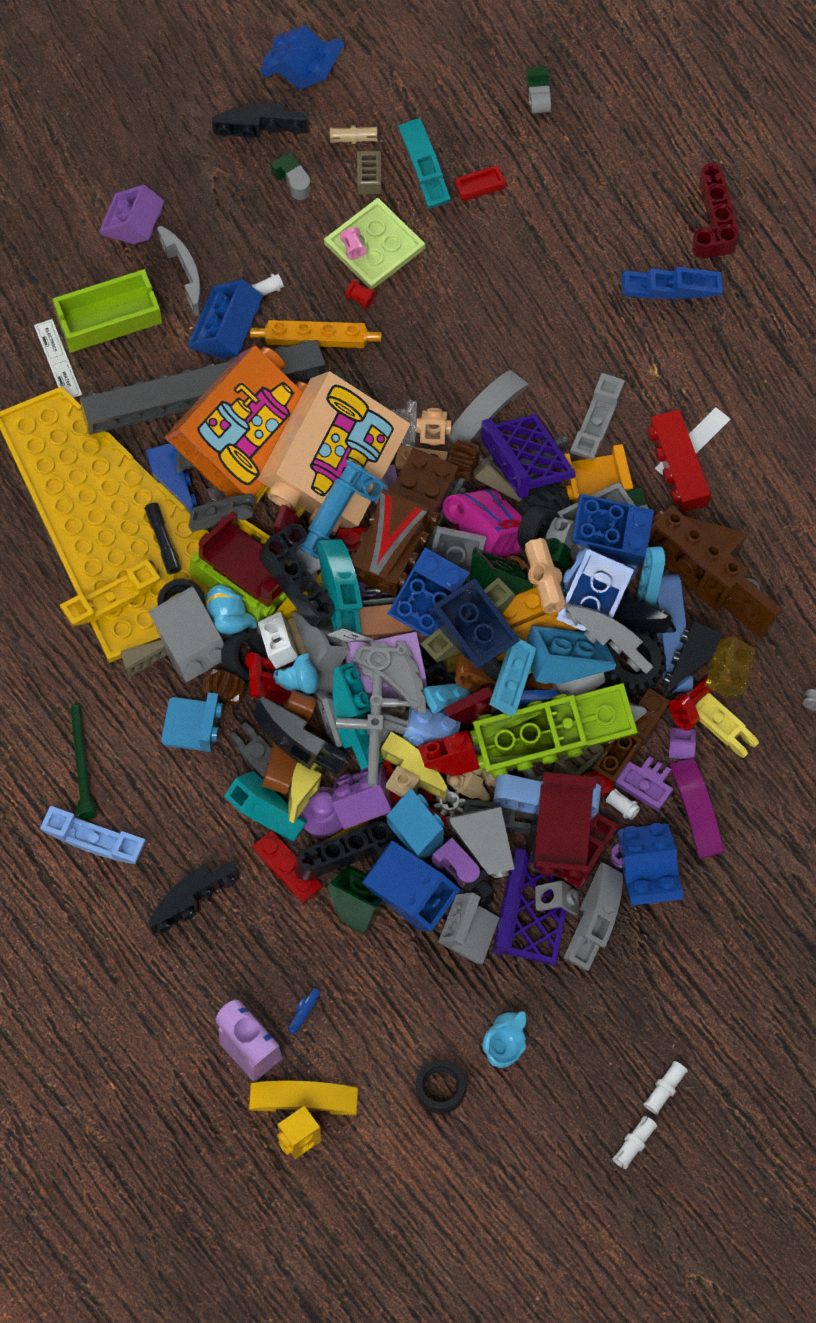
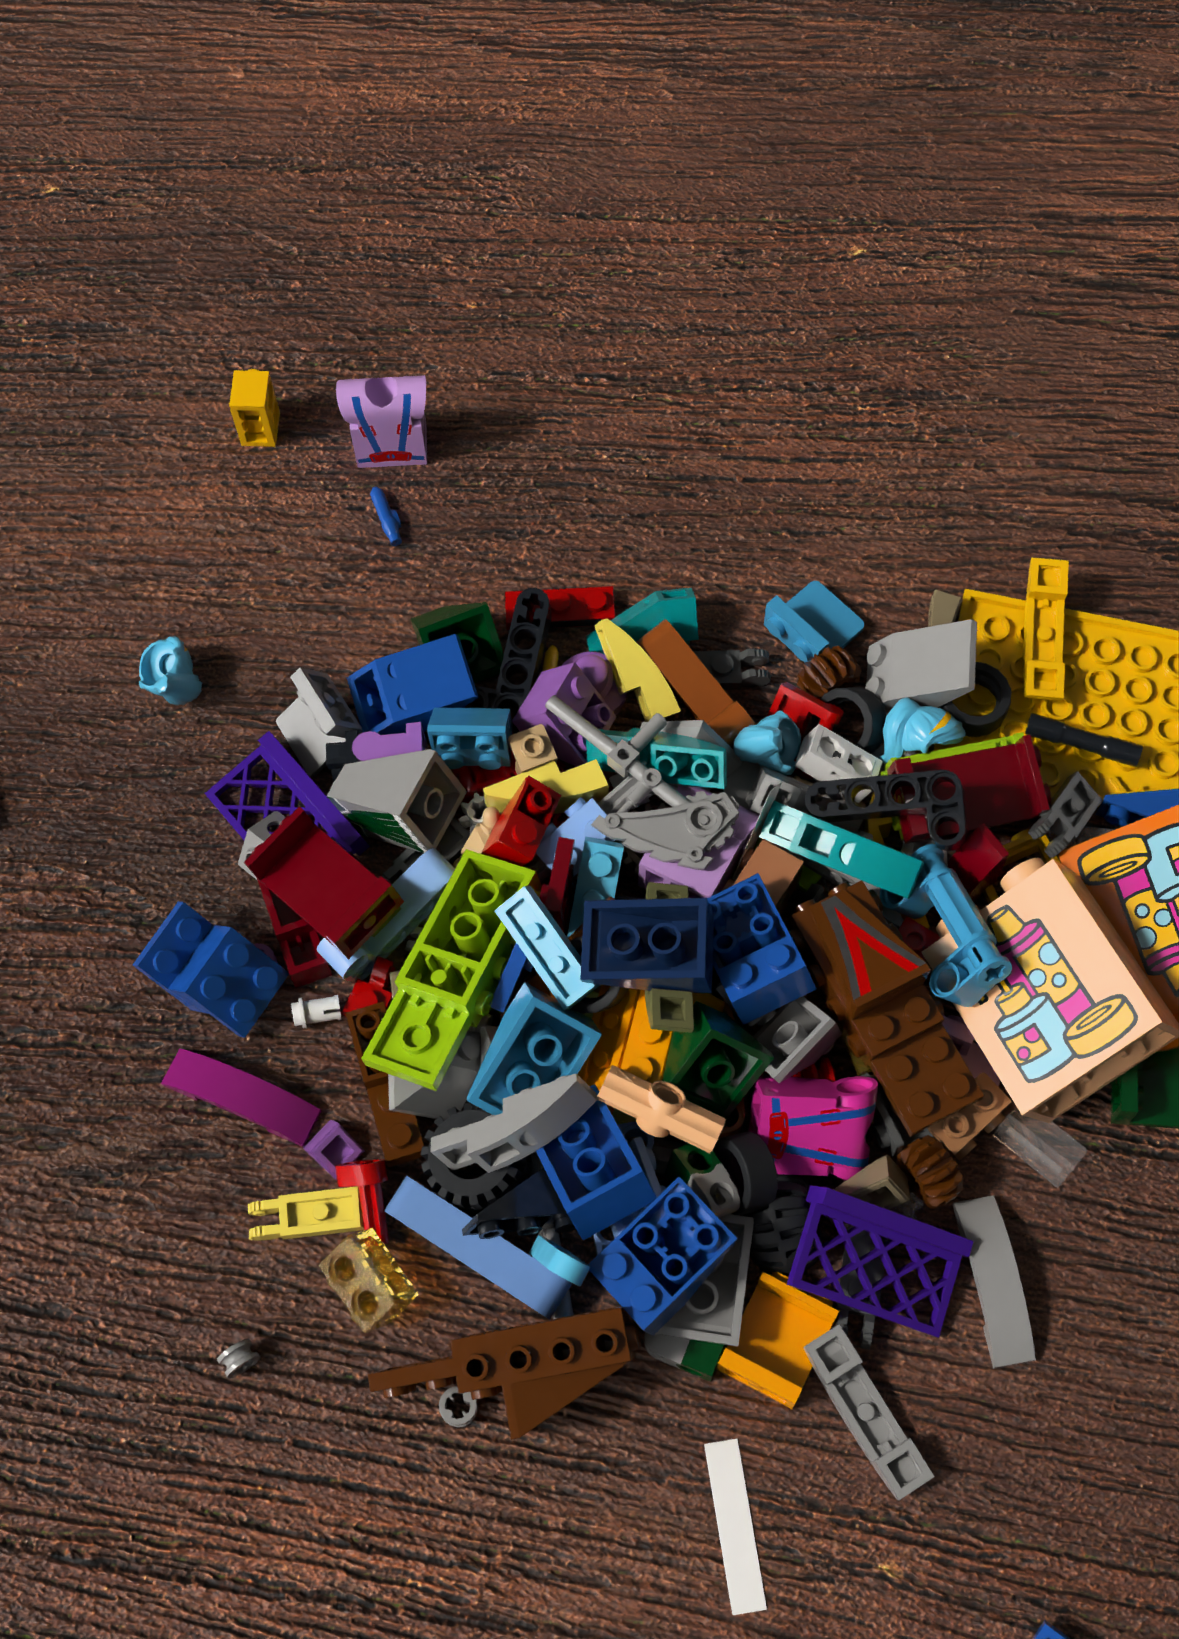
camera: 130 degrees right, 0 degrees up
(86, 808) = (799, 461): dark green piece -> none
(92, 838) = (759, 446): light blue slope -> none
(181, 899) = (607, 489): black slope -> none
(289, 735) = (702, 679): black slope -> none
(295, 1094) = (290, 451): yellow slope -> none
(433, 434) = (1010, 1175): light nougat brick -> none
(440, 1066) = (175, 558): black tyre -> none
(599, 916) = (207, 871): light grey slope -> none
(646, 783) = (316, 1058): medium lavender hinge -> none
(679, 461) = (716, 1472): red brick -> none
(696, 652) = (411, 1233): black slope -> none

